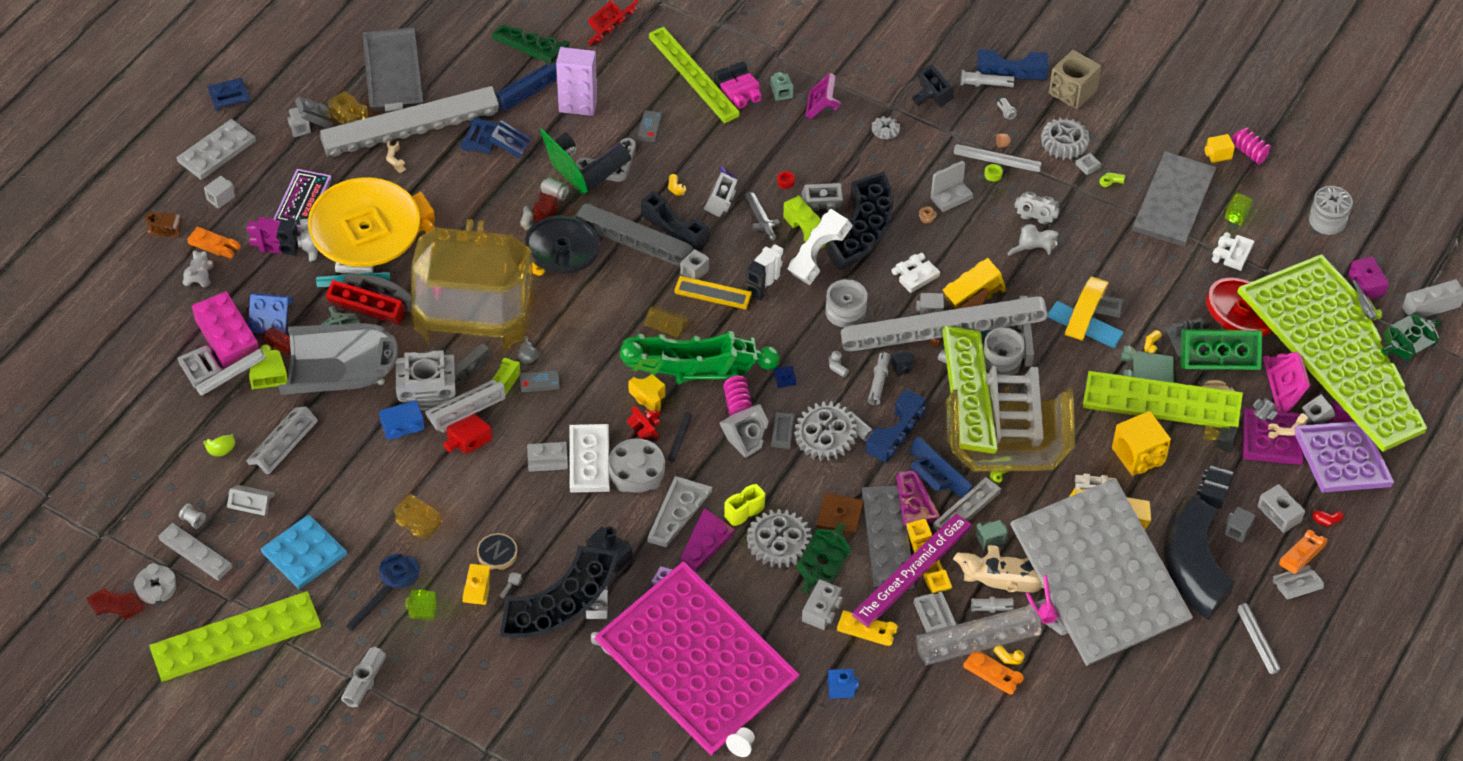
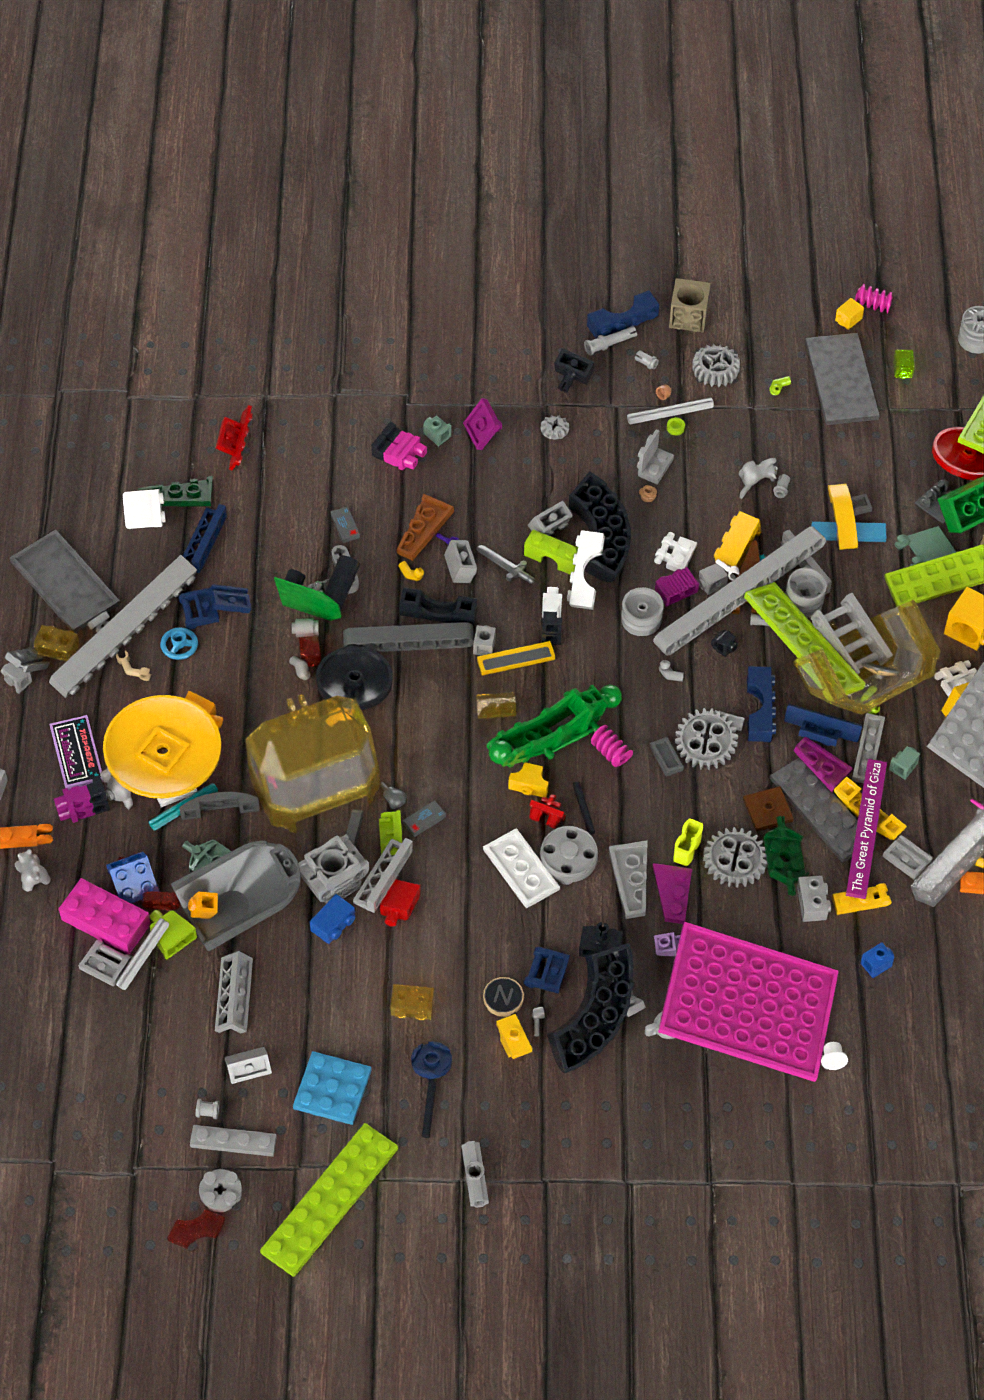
camera: 30 degrees left, 5 degrees up
(220, 446) = (183, 1028): lime hair -> none
(303, 356) = (203, 905): none -> light orange brick
(365, 302) = (216, 823): red brick -> none
(421, 604) = (475, 1080): clear neon green brick -> none
(445, 153) = (179, 640): none -> dark azure piece
(492, 41) = (143, 509): none -> white bracket
(547, 456) = (482, 885): light grey plate -> none
(552, 552) = (553, 972): none -> dark blue plate
(577, 81) = (262, 513): lavender brick -> none
(694, 75) = (350, 455): lime plate -> none
(711, 156) = (427, 521): none -> dark orange wing
(746, 429) = (637, 772): light grey slope -> none
(785, 376) = (633, 706): clear blue plate -> none
(786, 180) = (503, 519): red tile -> none
(880, 372) = (712, 661): light grey pin -> none
(894, 298) = (676, 586): none -> magenta brick
(952, 305) = (733, 569): none -> white hand
(992, 604) = (947, 824): light grey pin -> none
(1000, 572) = (936, 793): tan animal -> none
(1019, 445) = (880, 671): none -> dark grey dish
(1041, 208) = (744, 442): light grey brick -> none
(1048, 262) = (781, 489): none -> light grey pin
(1088, 164) = (749, 380): light grey tile -> none
(1149, 346) = (911, 518): yellow arm -> none
(1238, 251) = (927, 401): white plate -> none

